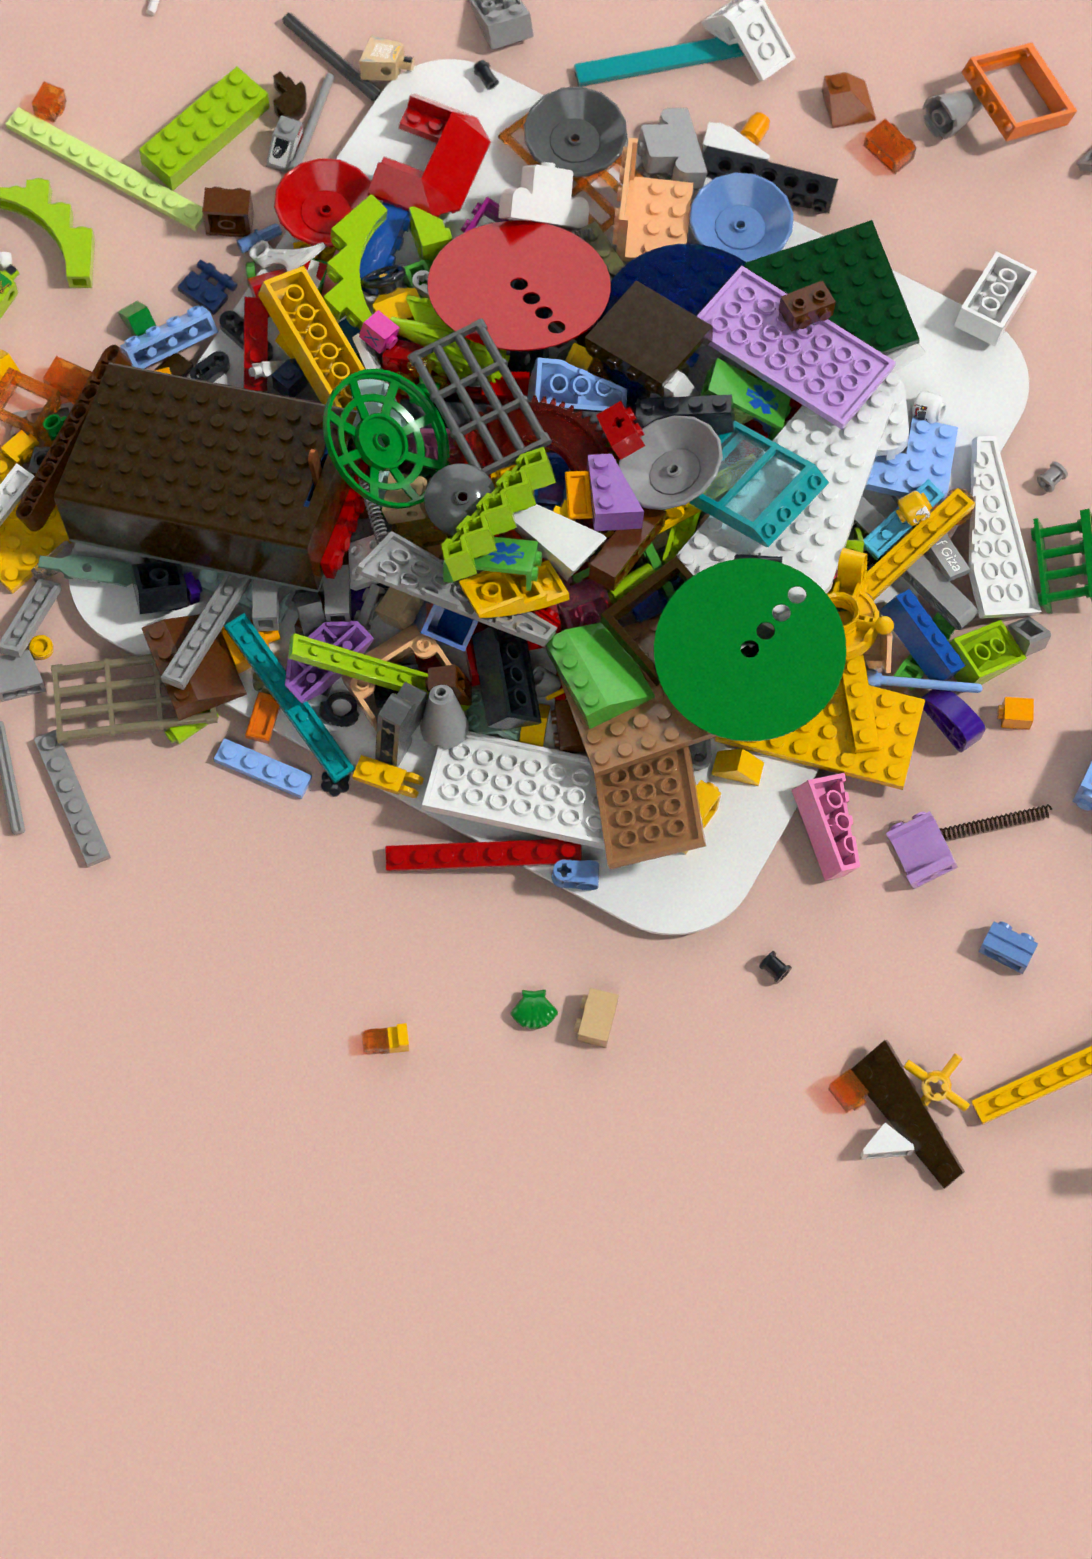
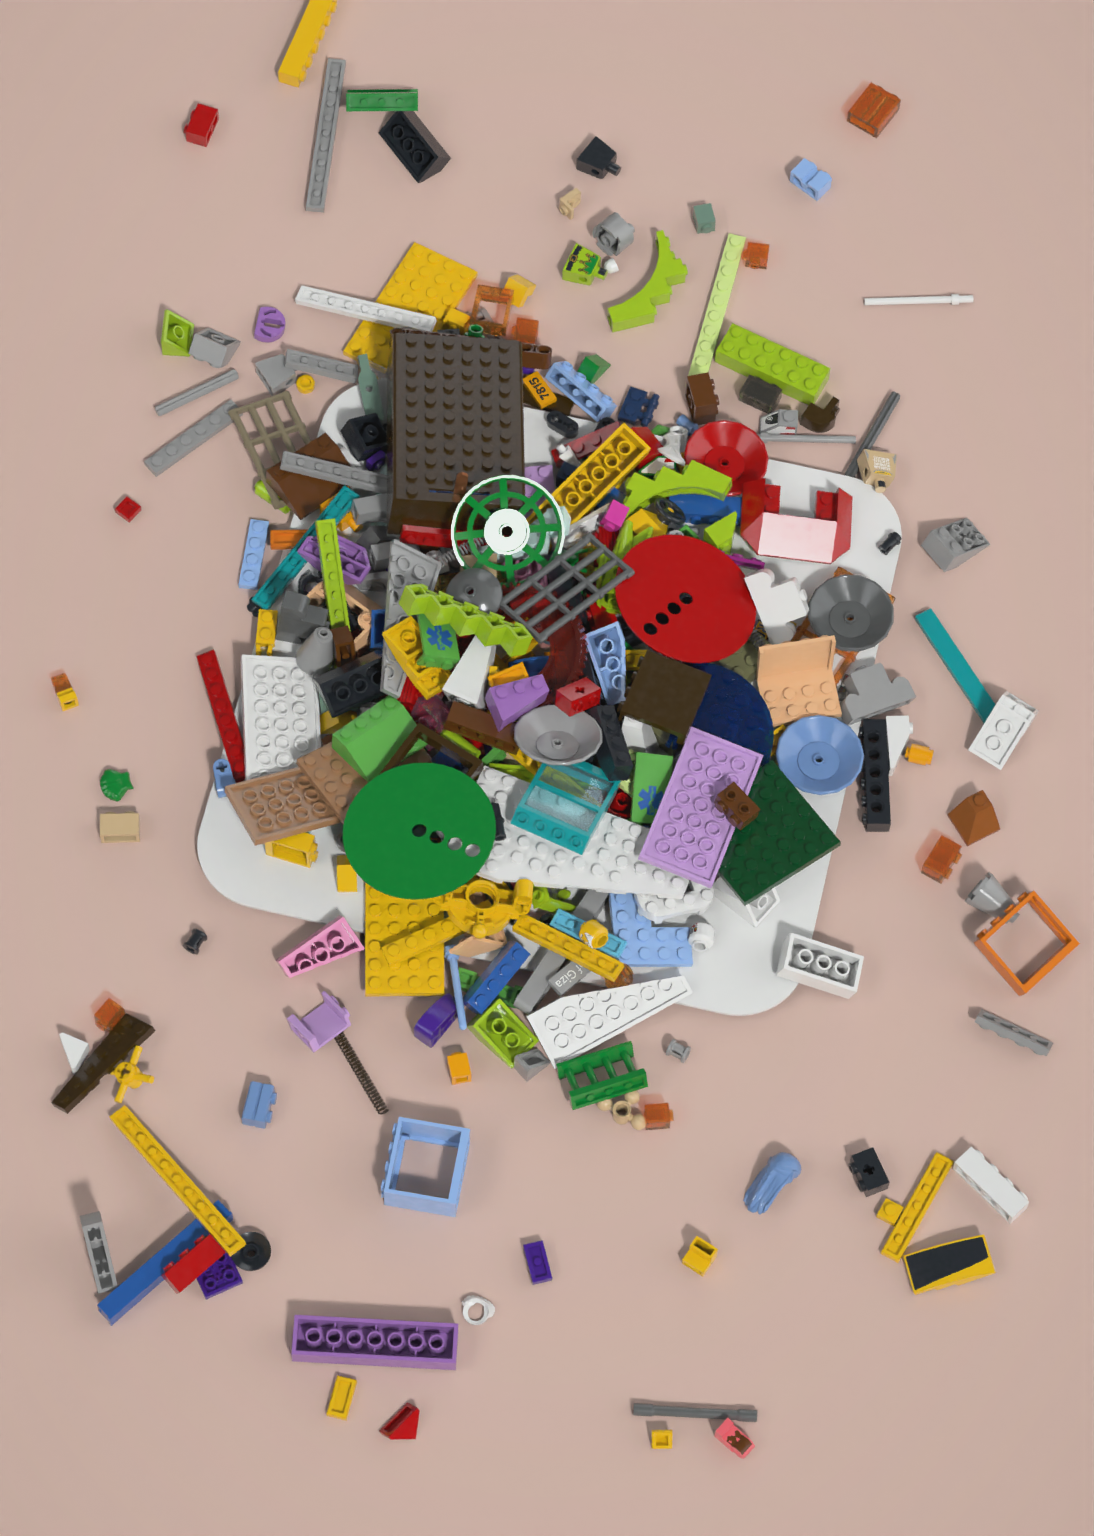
camera: 75 degrees right, 5 degrees down
(150, 900) = (128, 509): none -> red plate
(239, 152) = (760, 394): none -> clear smoke brick

